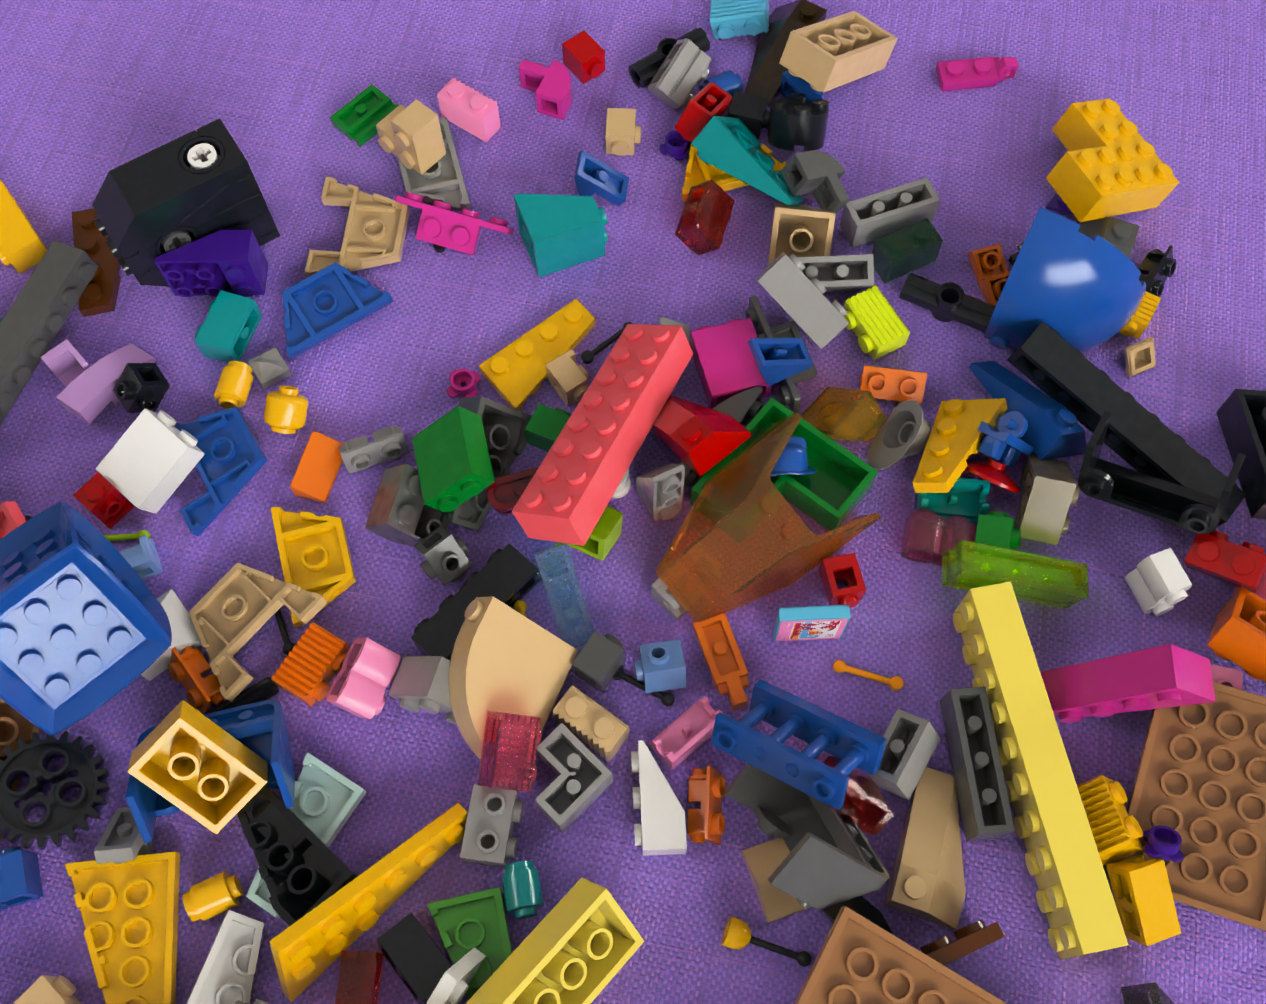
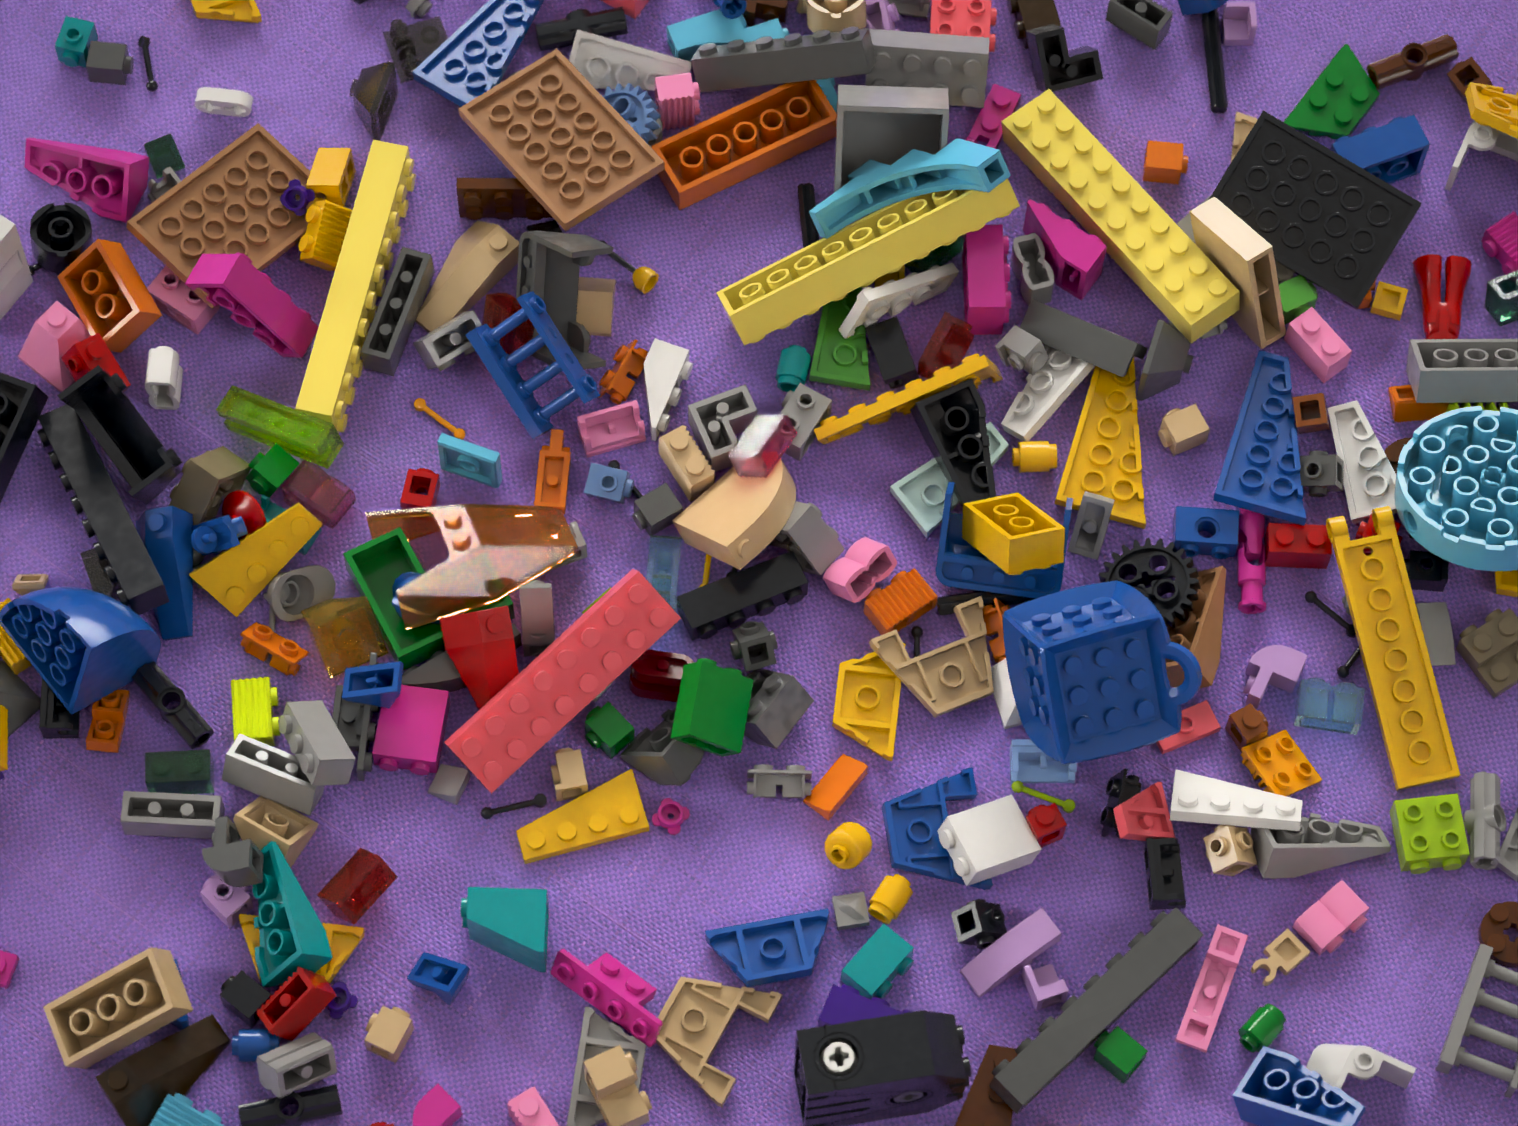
camera: 160 degrees left, 0 degrees up
(797, 122) = (190, 952): black brick -> none

